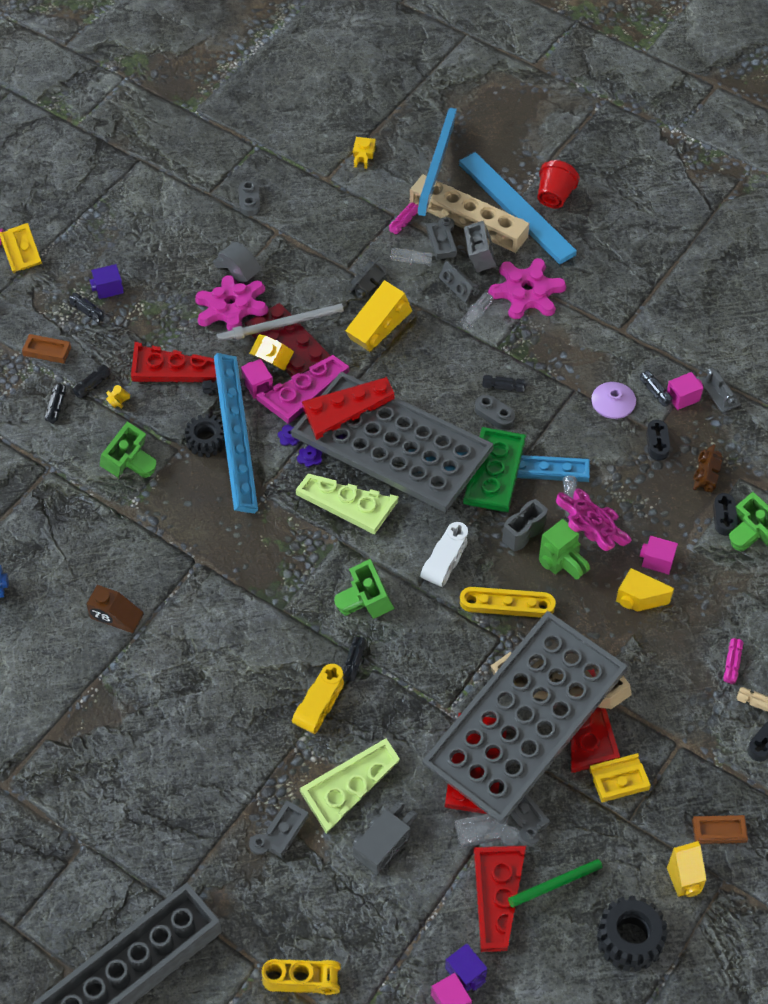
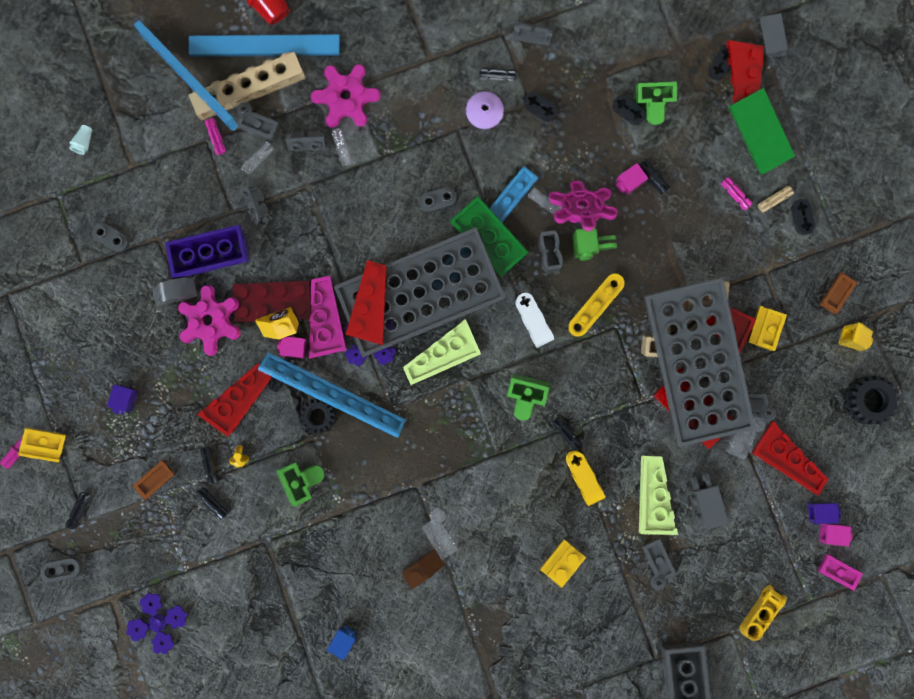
camera: 55 degrees left, 30 degrees up
(86, 307) = (134, 427): black axle -> none
(160, 605) = (438, 534): none -> clear hinge
(212, 739) = (562, 563): none -> yellow plate
(239, 332) = (245, 334): light grey bar -> none
(295, 265) = (207, 251): none -> dark purple brick
(318, 132) = (81, 140): none -> light aqua cone
(363, 150) = (123, 117): yellow plate -> none
(379, 316) = (302, 224): yellow wedge -> none
(480, 246) = (288, 103): dark grey brick -> none
(503, 383) = (419, 175): black axle -> none
(555, 883) = (807, 420): green bar -> none
(643, 592) = (650, 213): yellow slope -> none
(681, 574) = (654, 177): none -> black pin
(685, 390) = (516, 56): dark pink brick -> none
(708, 461) = (582, 87): reddish brown hinge -> none

